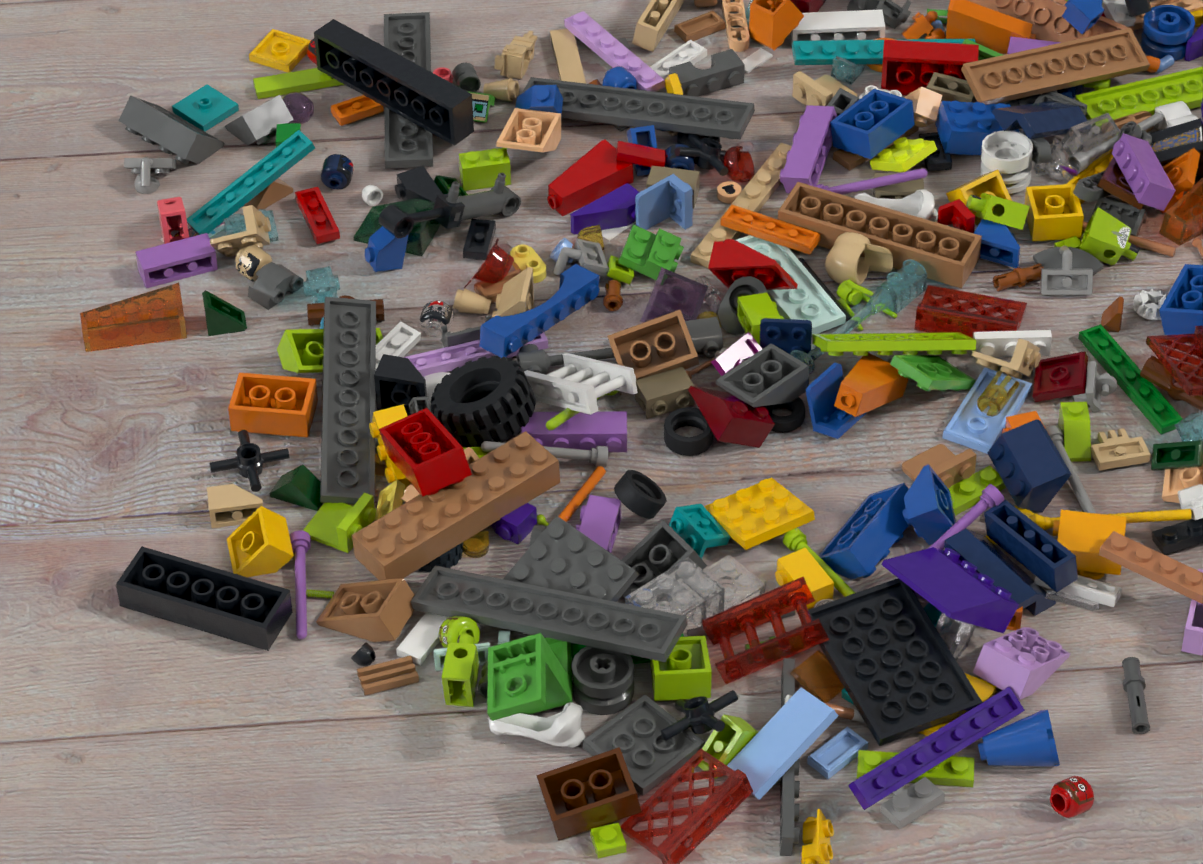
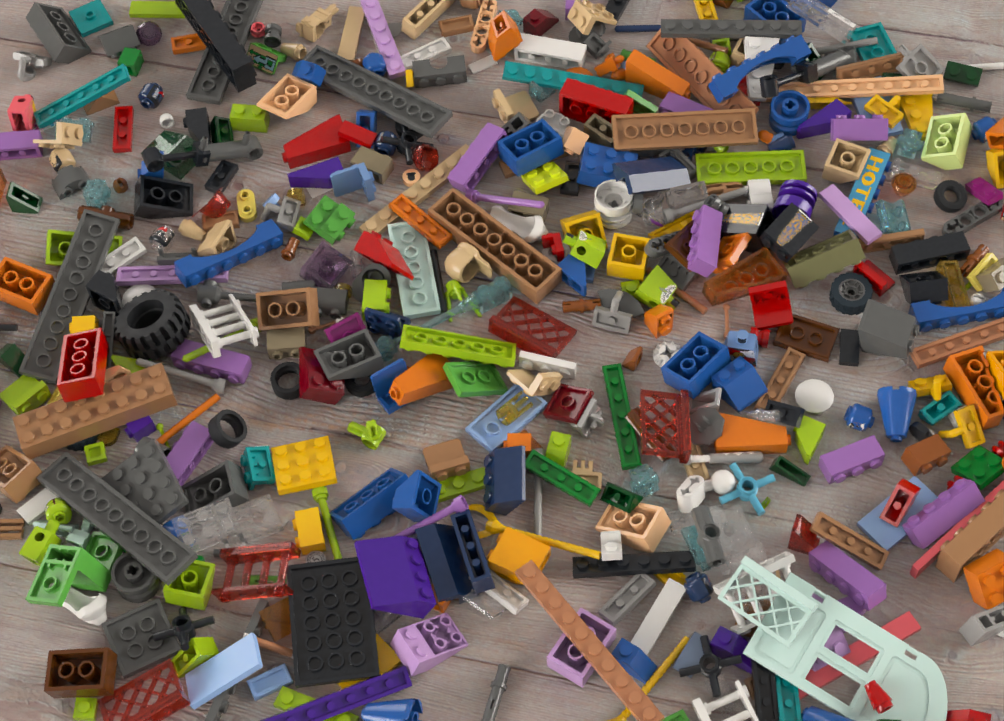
camera: 20 degrees right, 15 degrees up
(345, 275) = (116, 186): none -> dark orange hinge
(411, 276) = (162, 198): none -> black slope
(473, 562) = (95, 453): none -> lime plate
(829, 463) = (370, 435): none -> lime axle
(1100, 451) = (561, 478): none -> green tile
(1127, 267) = (659, 320): none -> orange slope
(1177, 63) = (785, 142): none -> dark blue cone

